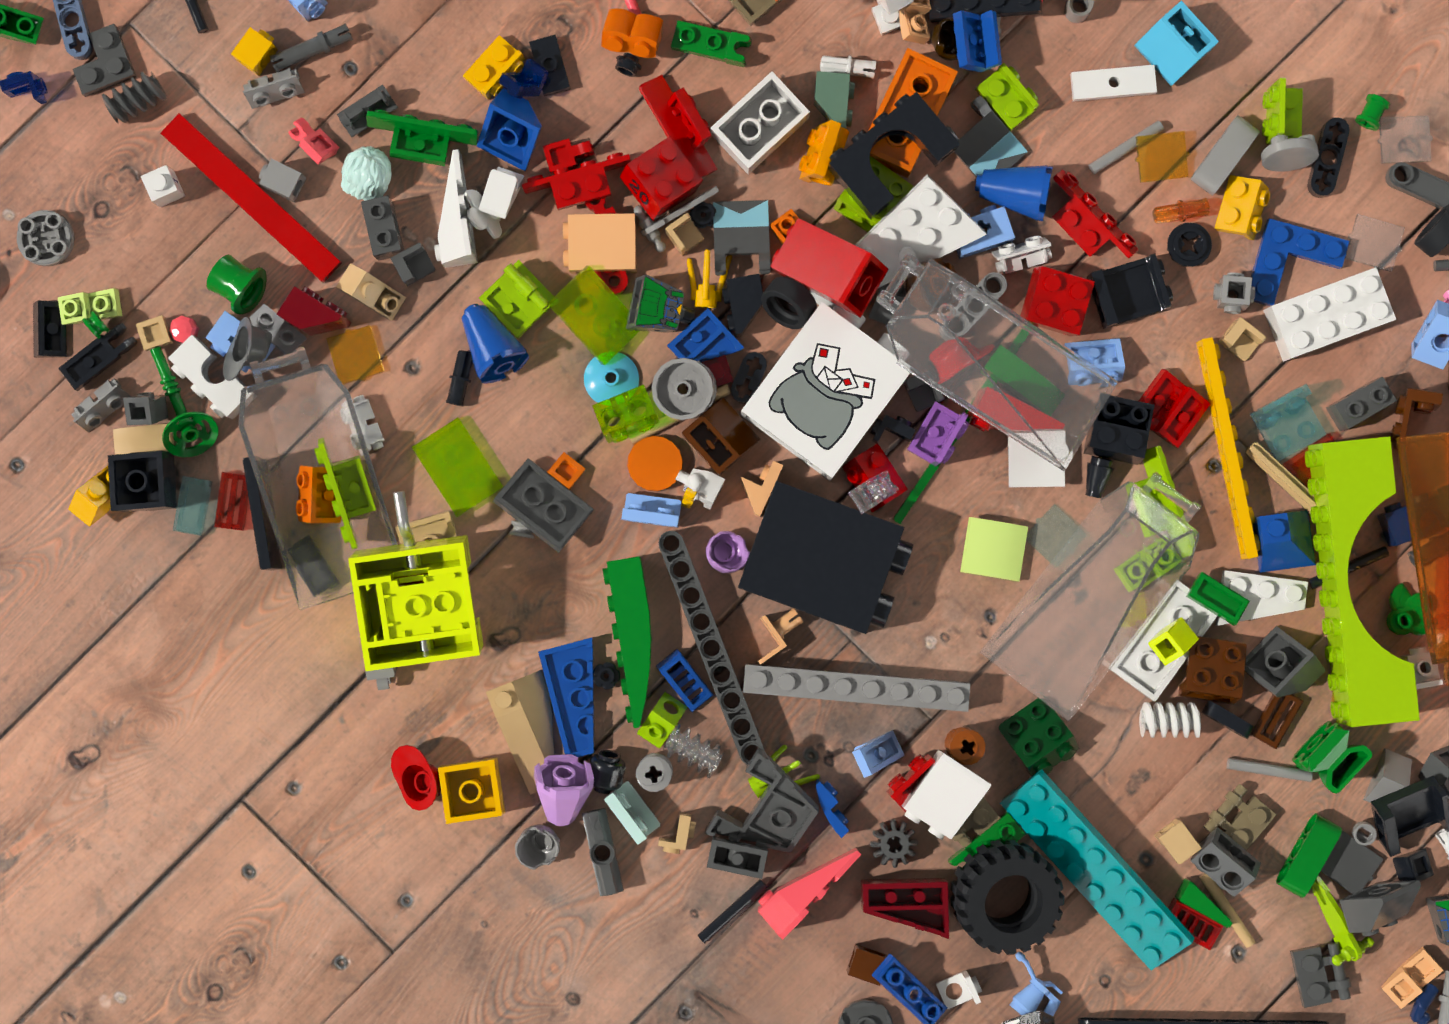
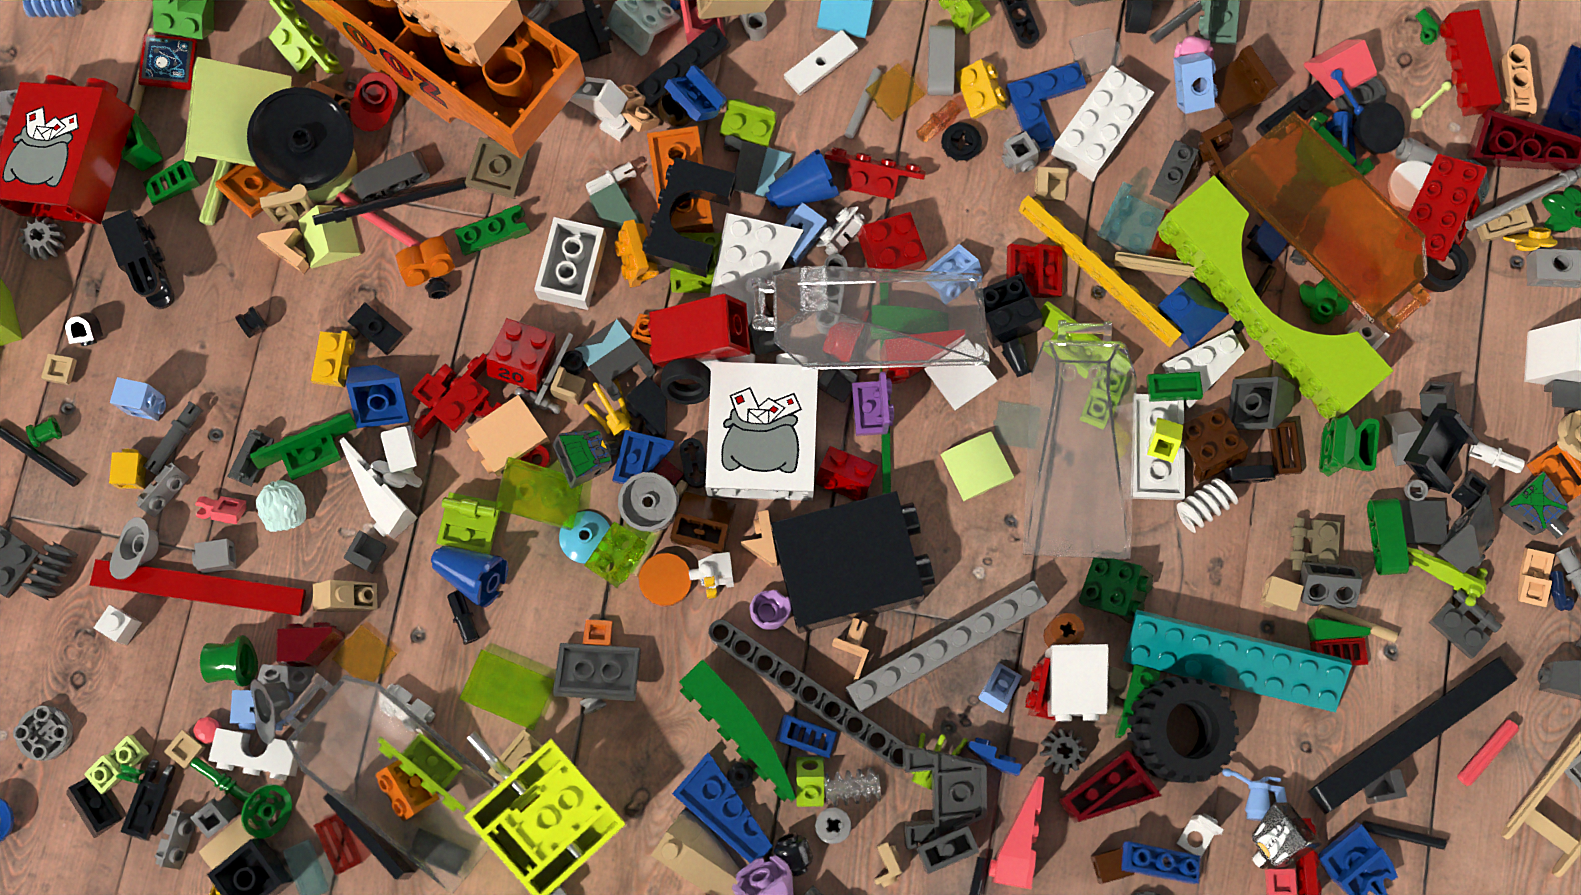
camera: 40 degrees left, 10 degrees down
(217, 126) = (135, 547): none -> light grey piece
(382, 227) = (321, 539): dark grey brick -> none
(527, 83) = (366, 350): clear blue bracket -> none
(632, 812) = (837, 872): light aqua bracket -> none
(651, 510) = (687, 617): light blue bracket -> none
(680, 121) = (507, 300): red bracket -> none
(873, 491) = (852, 480): clear leg -> none
(900, 427) = (836, 422): black bracket -> none
(1130, 291) = (943, 204): black panel -> none
(1268, 769) = (1308, 492): light grey bar -> none
(1290, 153) = (988, 26): light grey tile -> none

